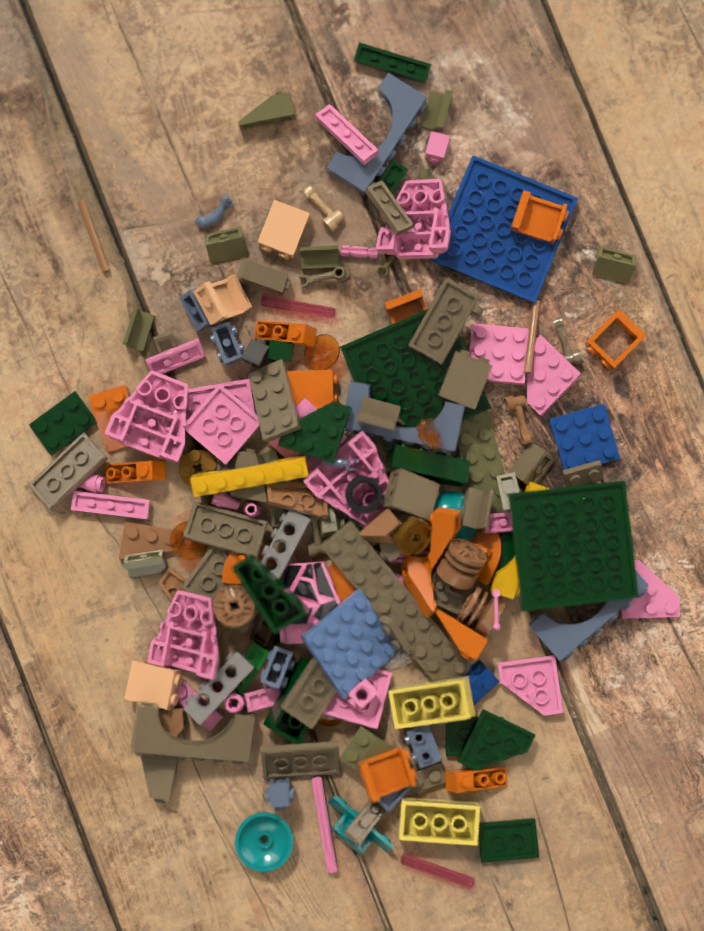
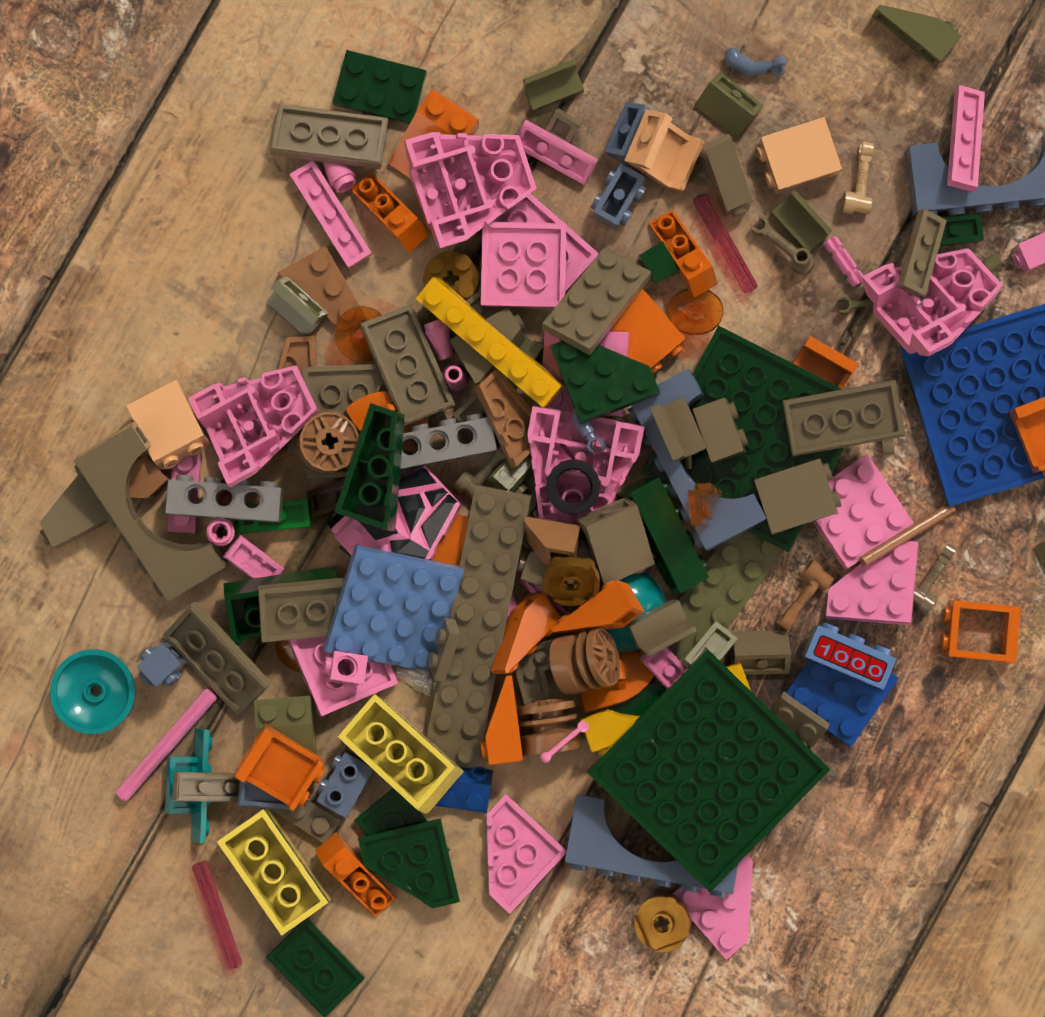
camera: 45 degrees right, 0 degrees up
(256, 353) = (634, 237): dark grey slope -> none
(278, 665) = (298, 549): sand blue brick -> none
(397, 391) = (720, 430): none -> dark tan brick
(572, 420) = (849, 655): none -> brick
(630, 624) = (656, 937): none -> pearl gold plate

